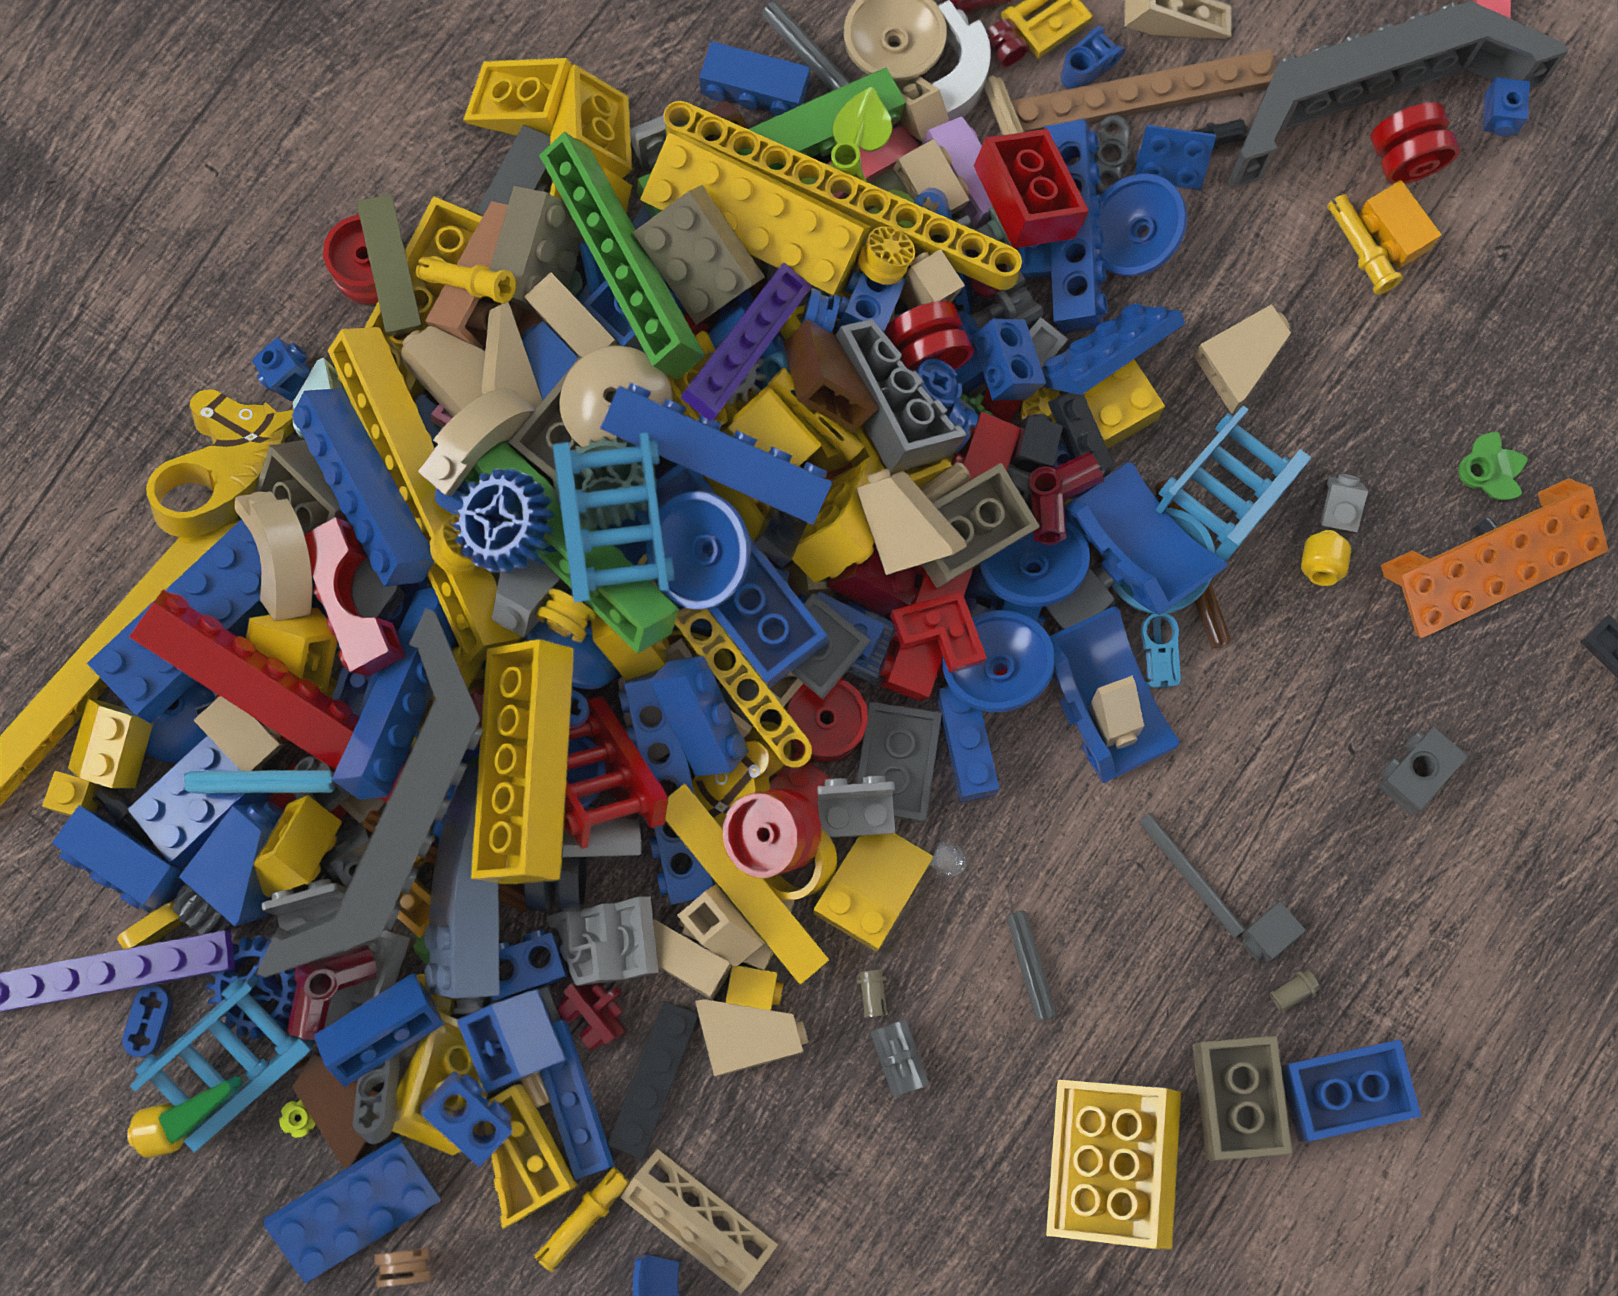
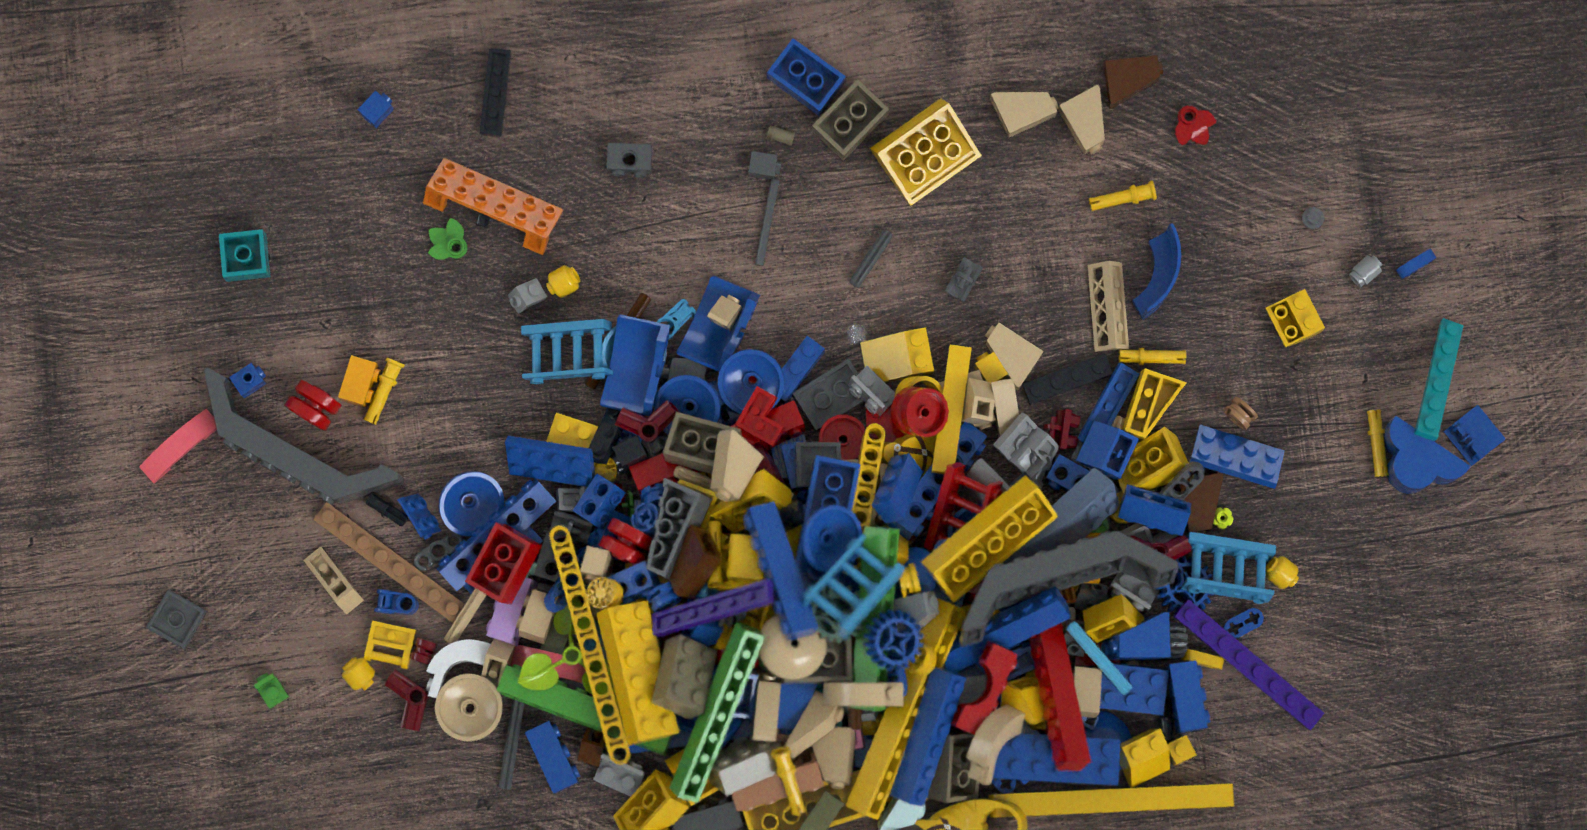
camera: 130 degrees left, 5 degrees up
(187, 1115) = (1256, 557): green slope -> none
(459, 1124) = (1161, 434): blue brick -> none
(873, 993) = (943, 318): dark tan pin -> none
(1242, 354) = (492, 400): tan slope -> none

